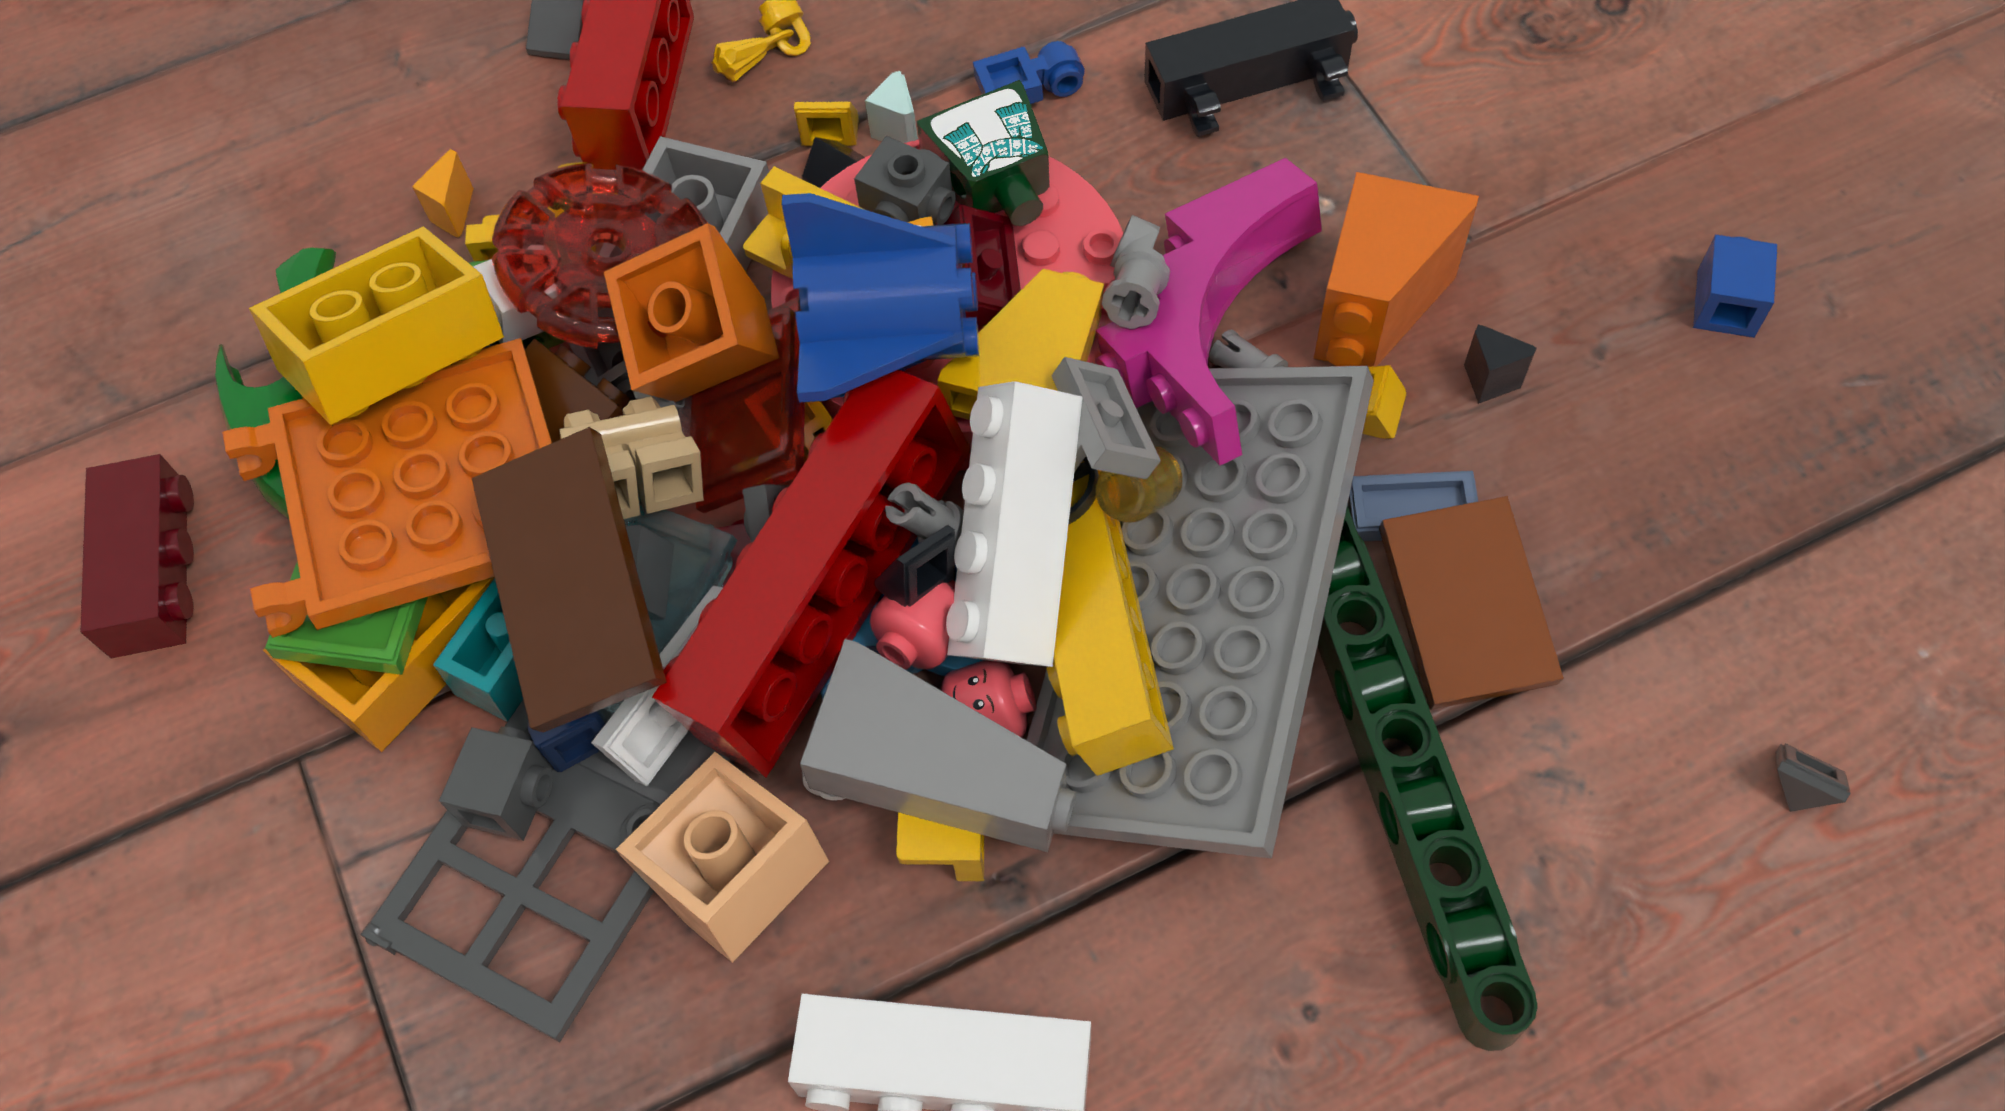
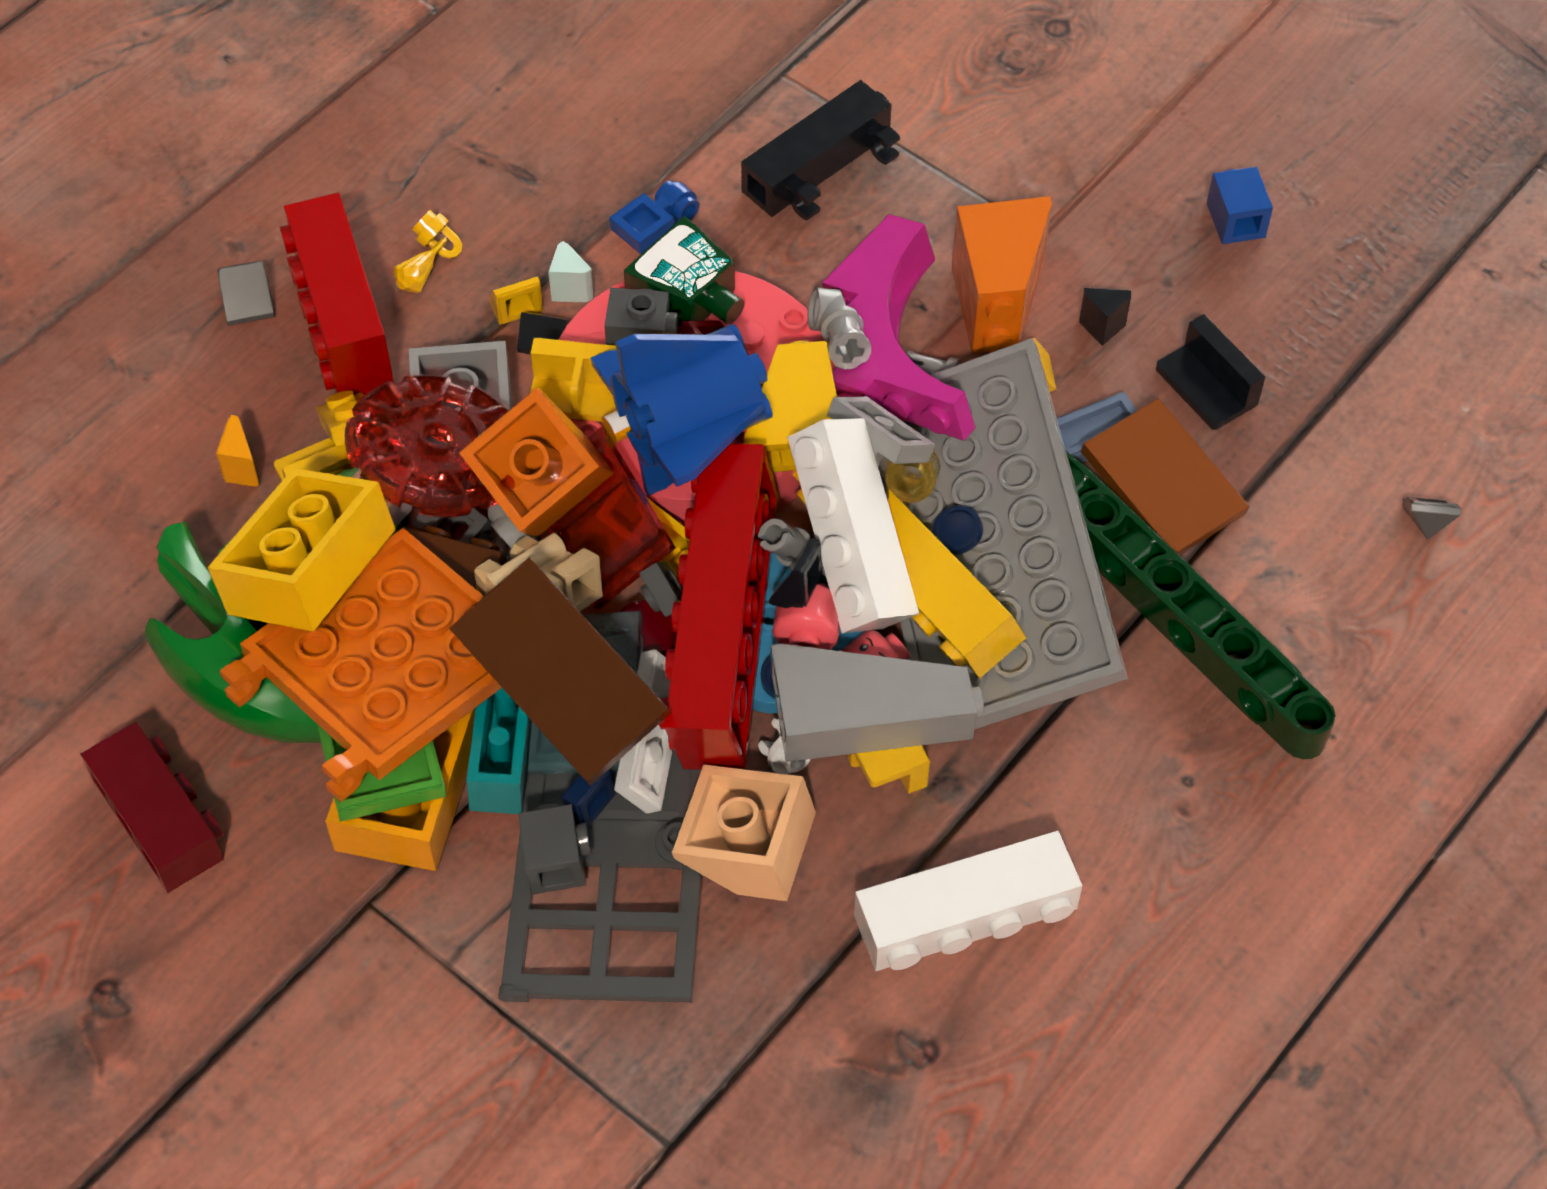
camera: 30 degrees left, 5 degrees down
(1164, 574) = (958, 529): none -> dark blue piece
(1596, 490) = (1212, 375): none -> black panel

